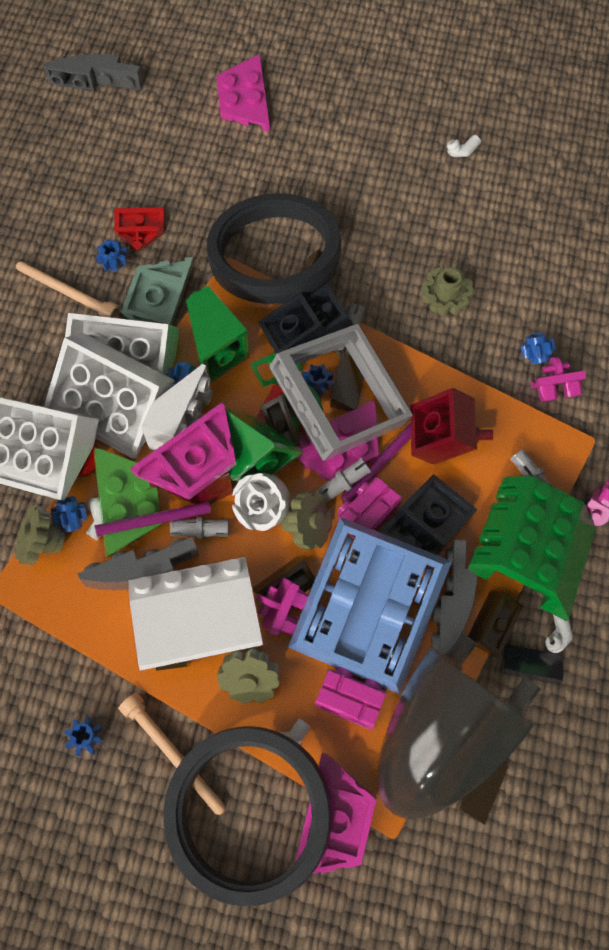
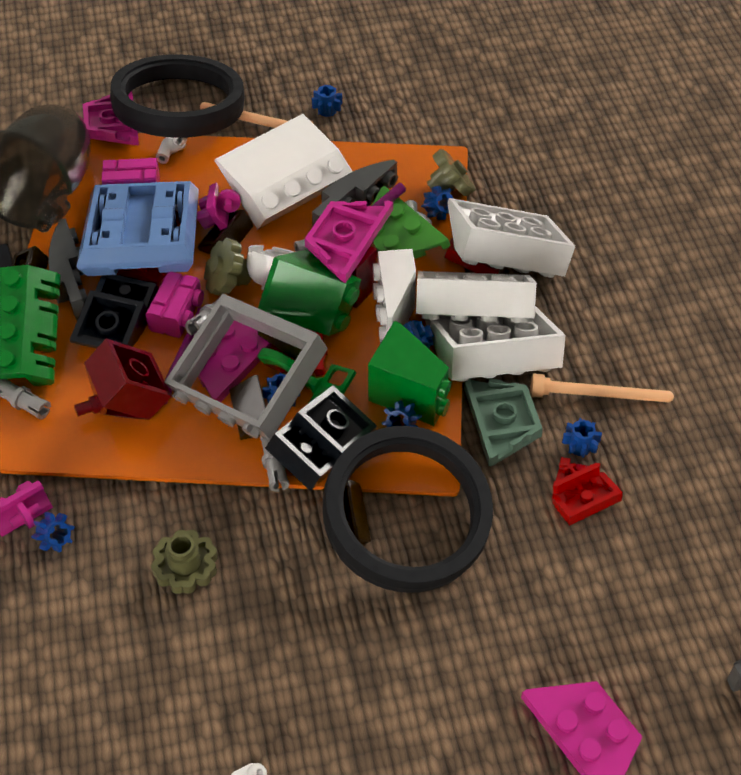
camera: 155 degrees right, 15 degrees down
(241, 310) = (393, 418): none -> blue gear
(248, 675) = (208, 155): olive plant -> none

